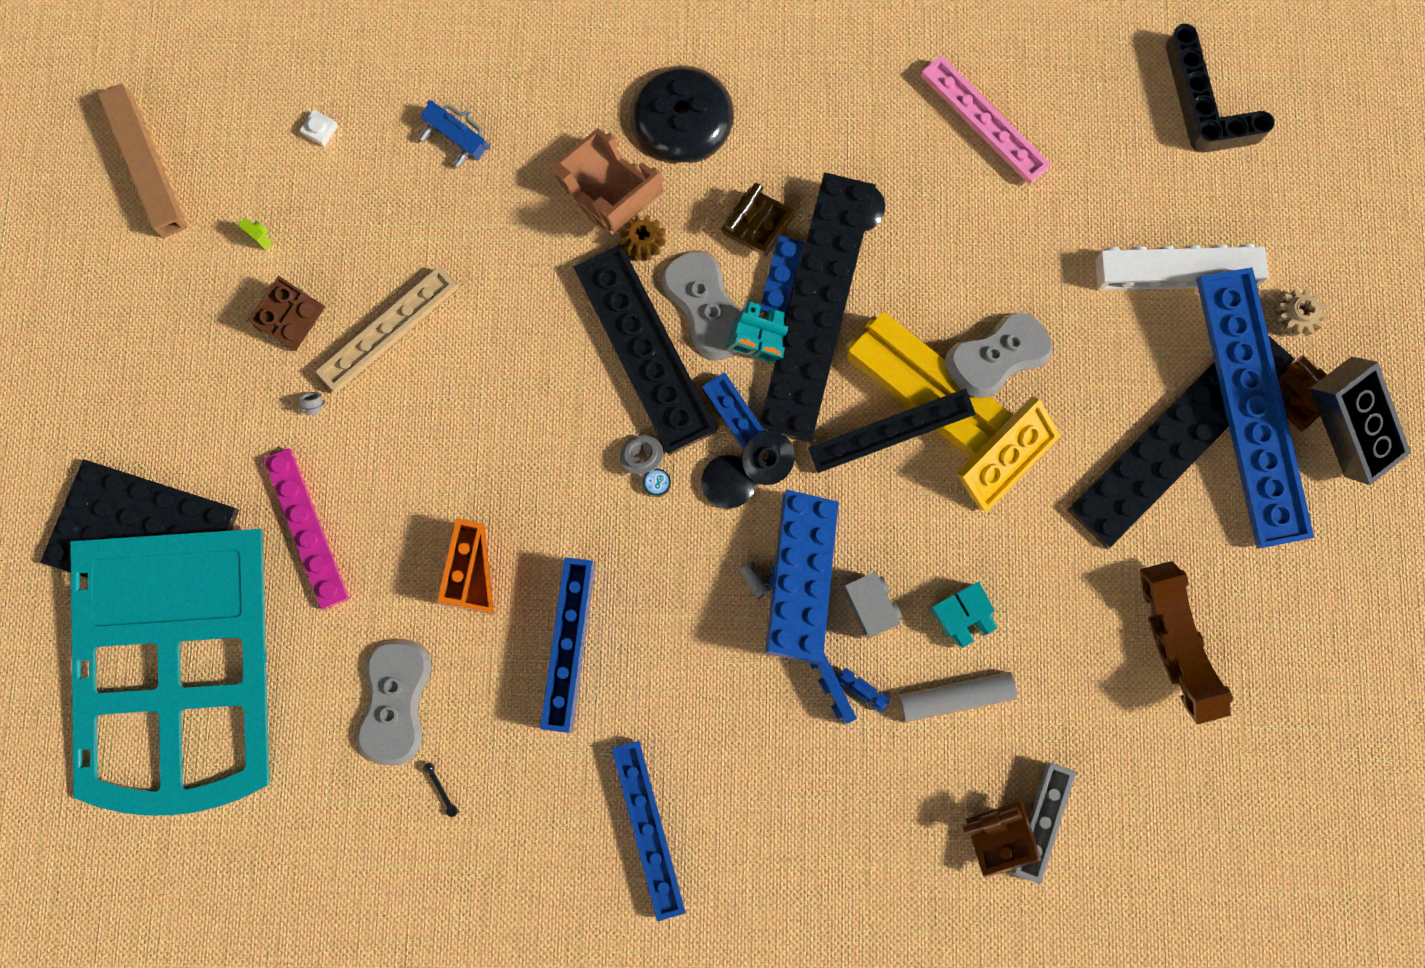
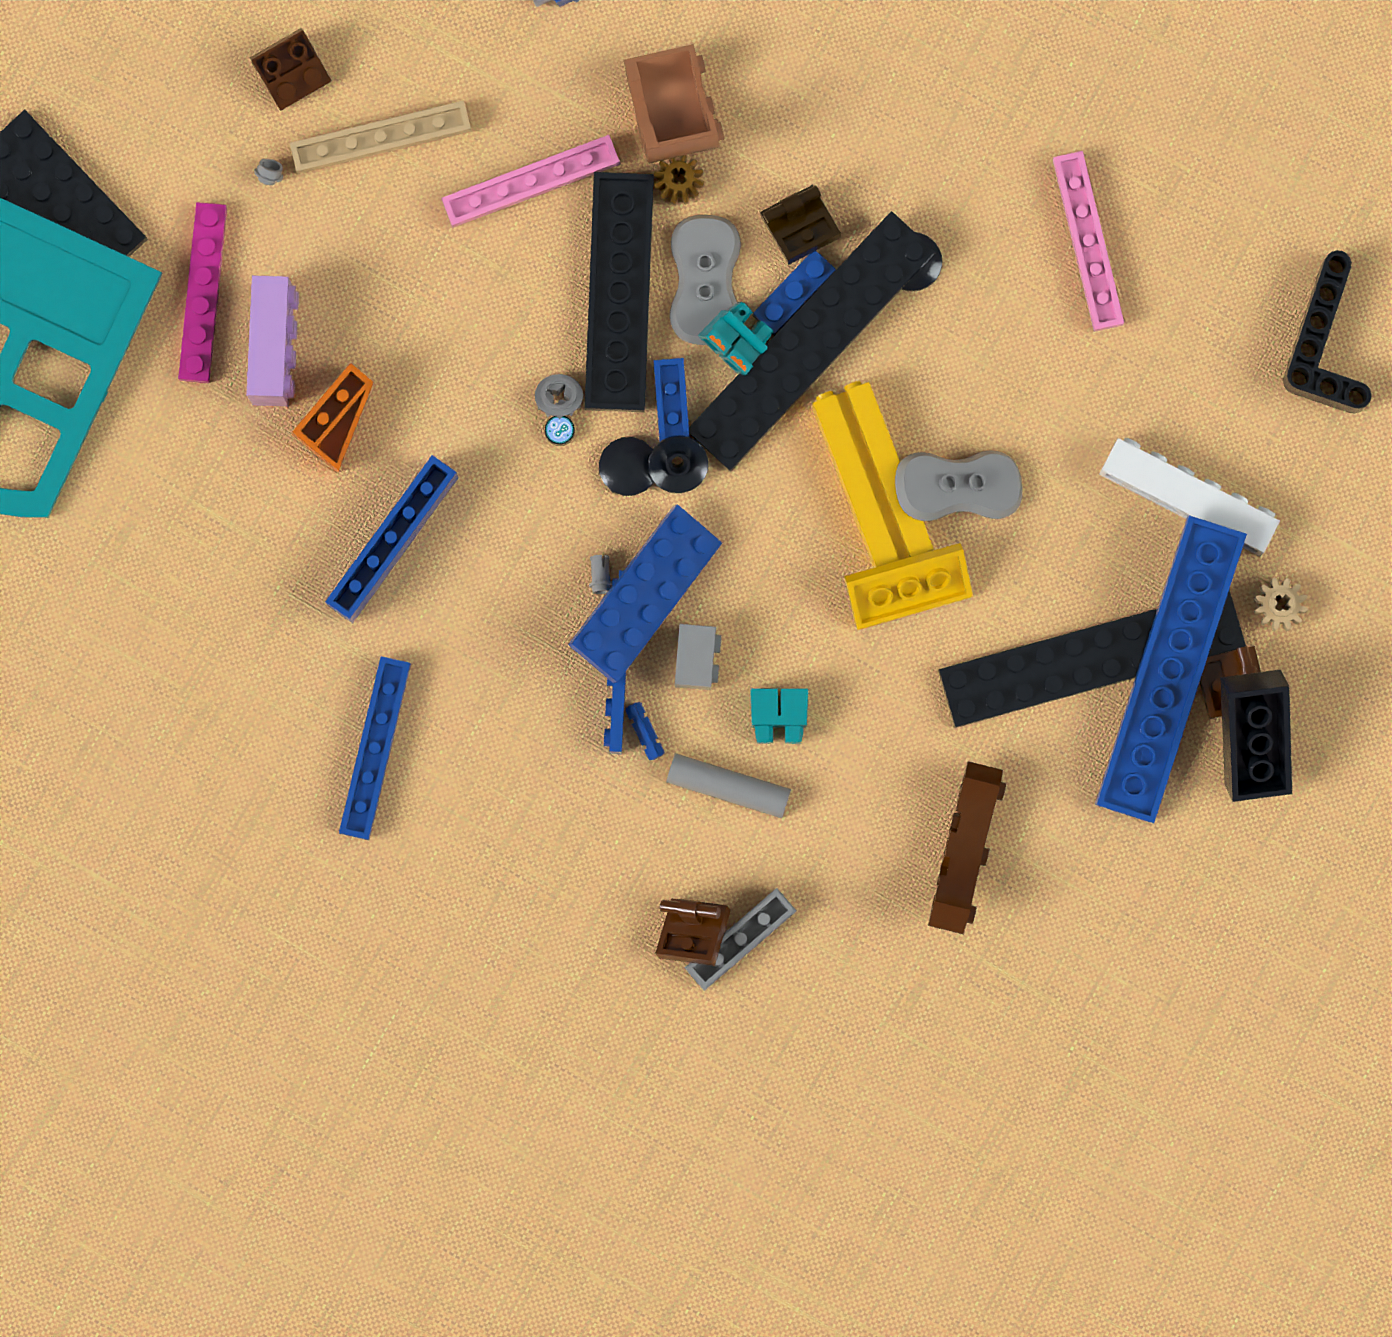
camera: 25 degrees right, 5 degrees up
(380, 536) = (270, 341): none -> lavender brick
(391, 725) = (188, 522): light grey plate -> none
(451, 810) = (203, 633): black hinge -> none
(526, 301) = (530, 181): none -> bright pink plate
(687, 135) = (784, 97): black brick -> none
(892, 430) = (808, 502): black plate -> none

